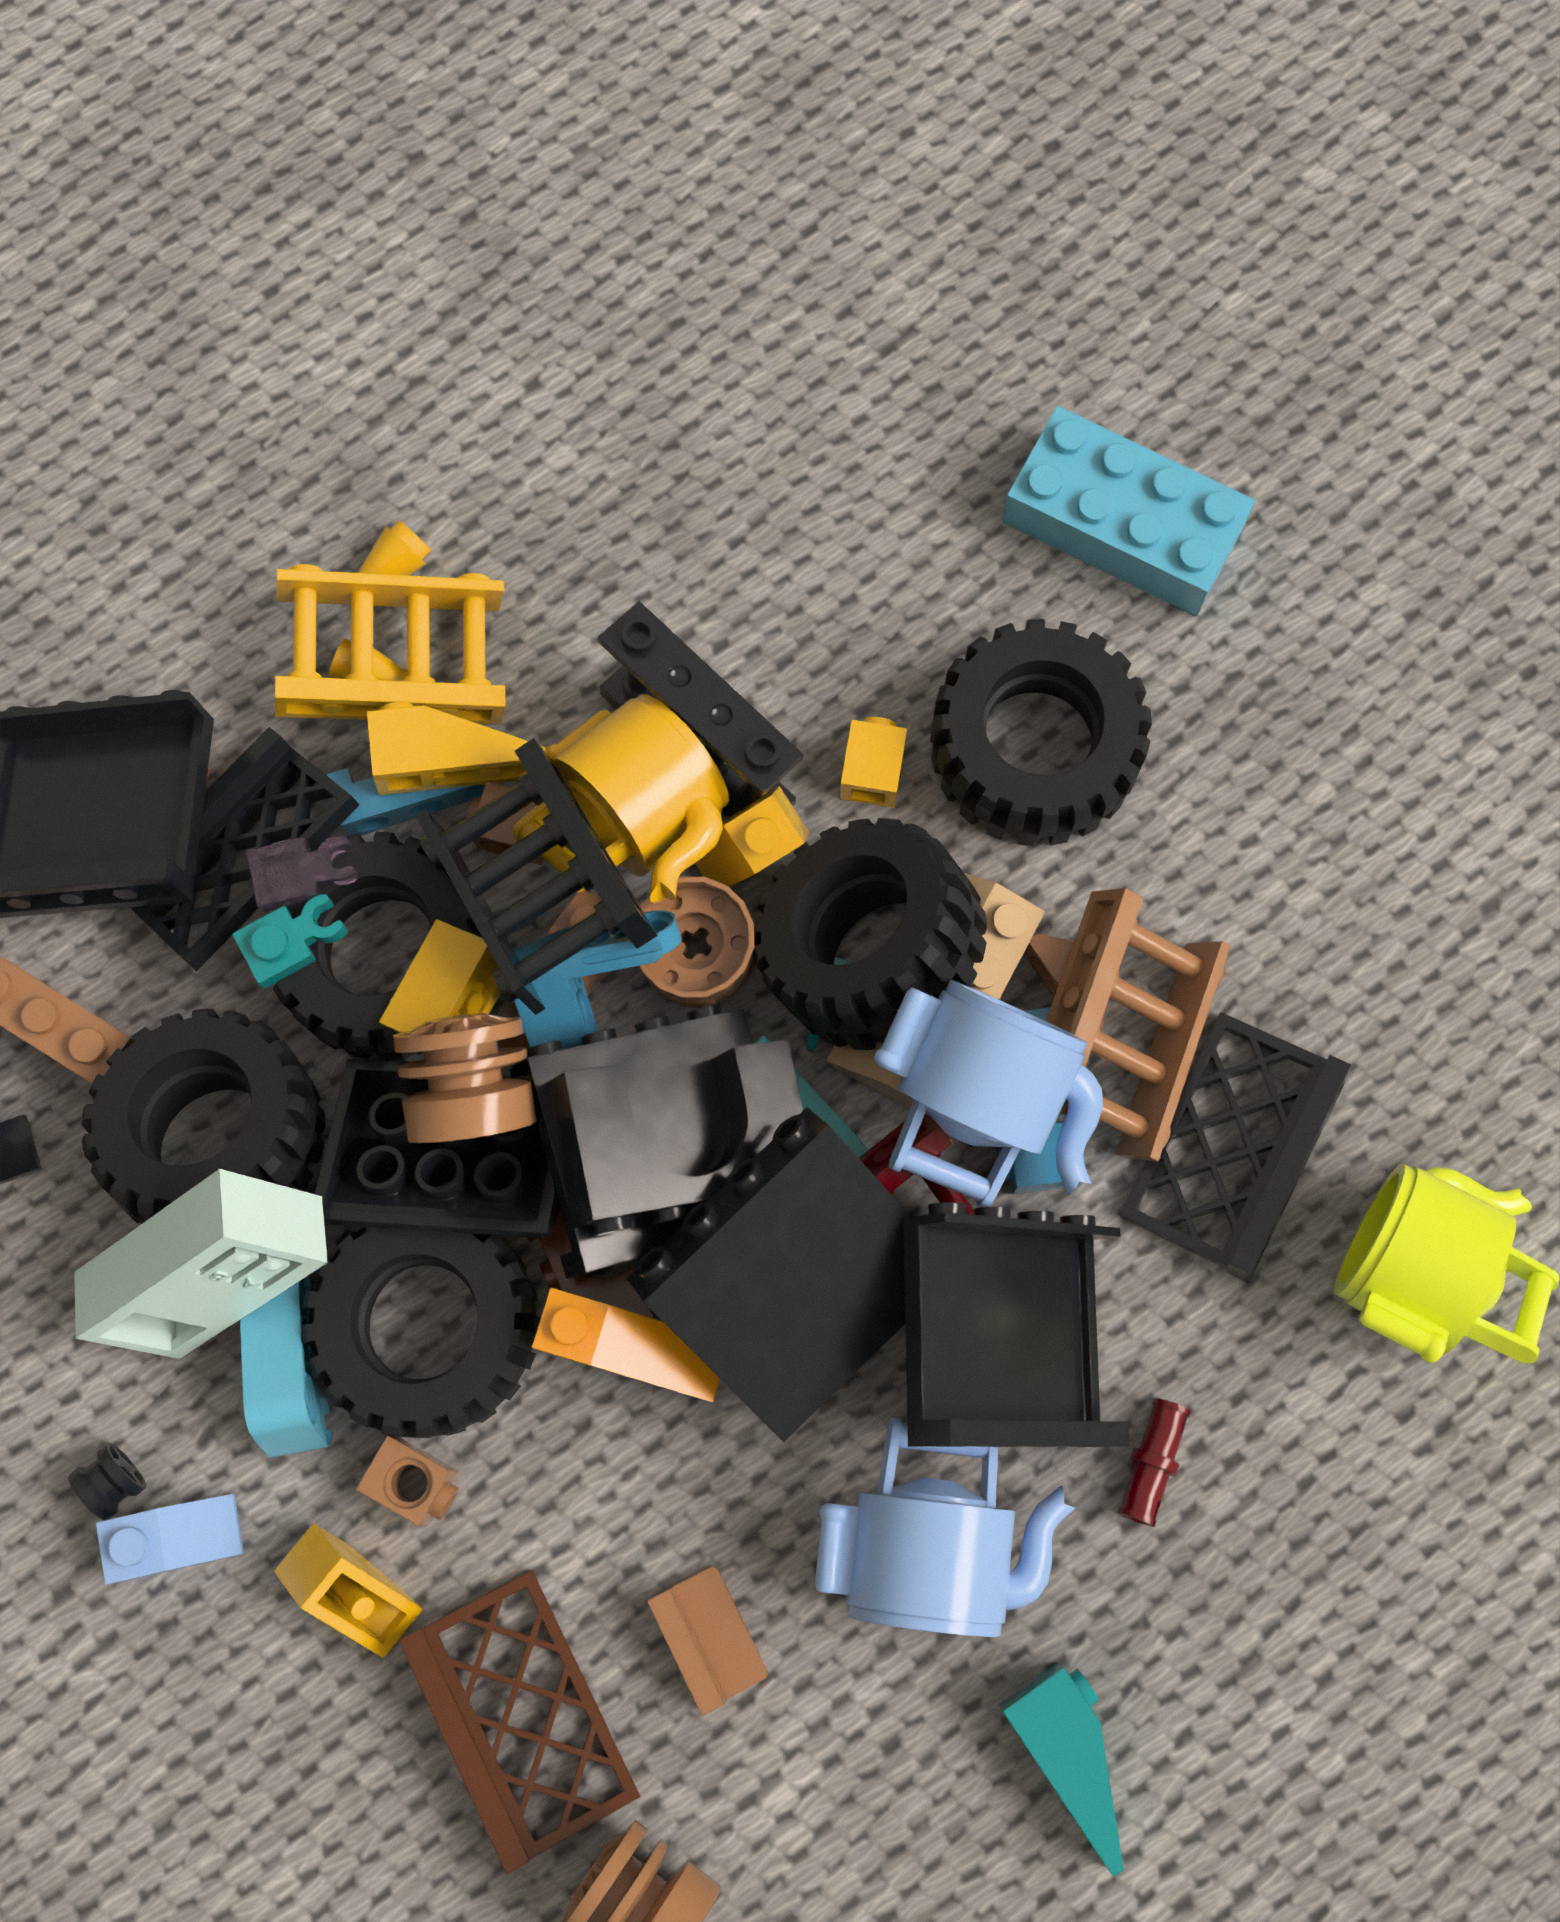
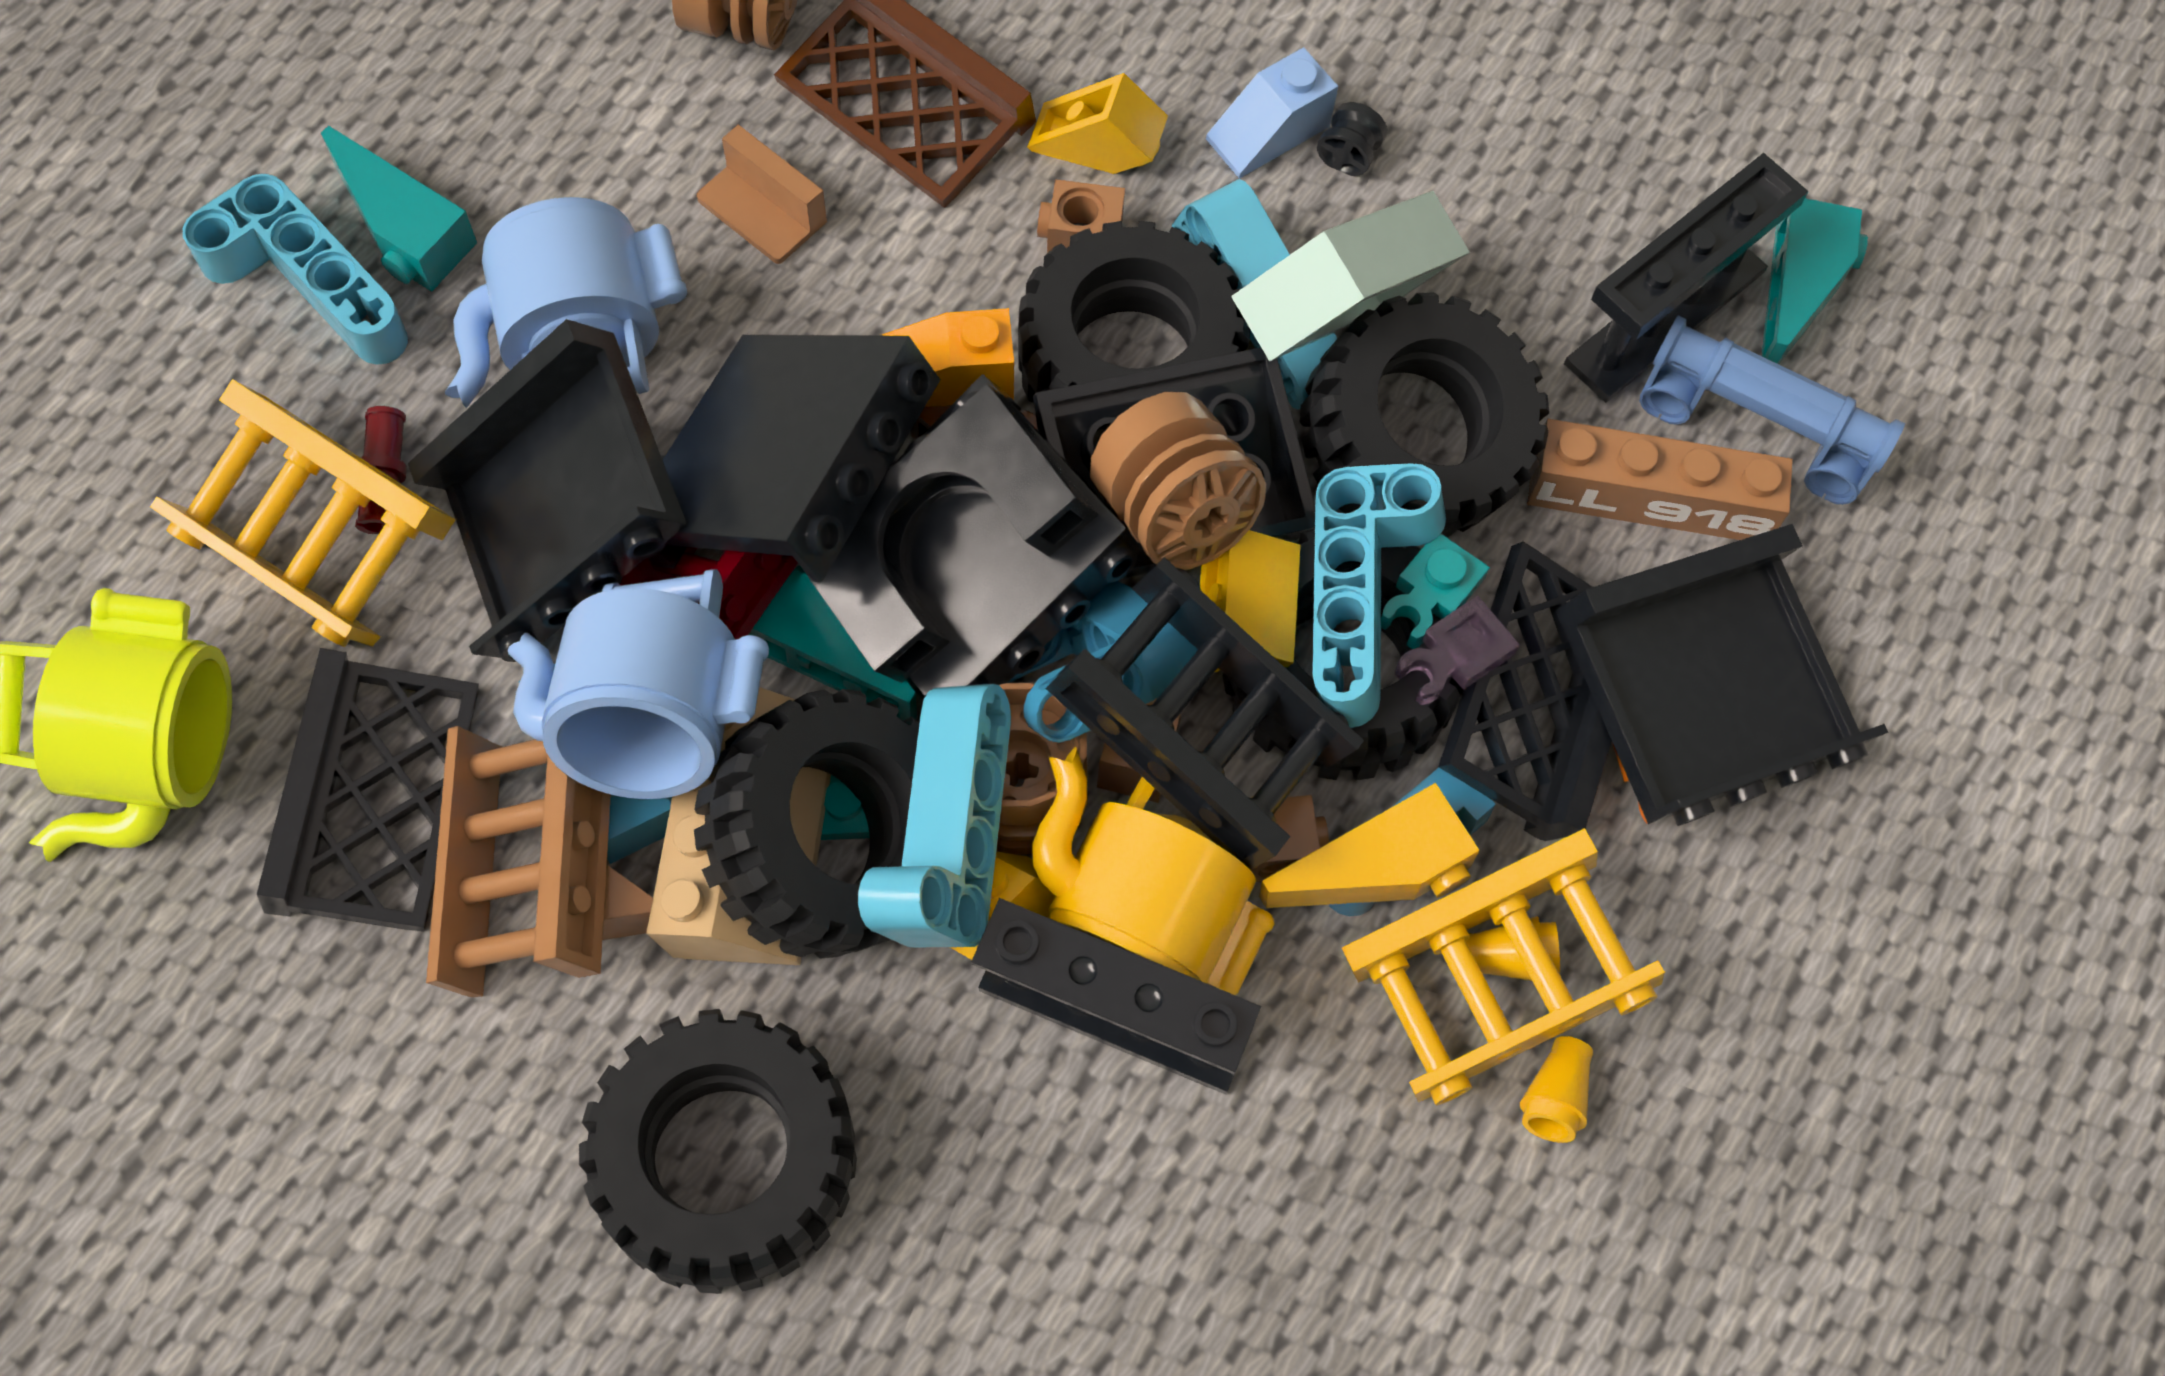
camera: 150 degrees right, 10 degrees down
(353, 942) = (1357, 593): none -> medium azure beam
(777, 866) = (951, 825): none -> medium azure beam
(873, 762) = (904, 1056): yellow brick -> none
(1172, 1710) = (268, 222): none -> medium azure beam
(1217, 1479) = (355, 486): none -> yellow fence

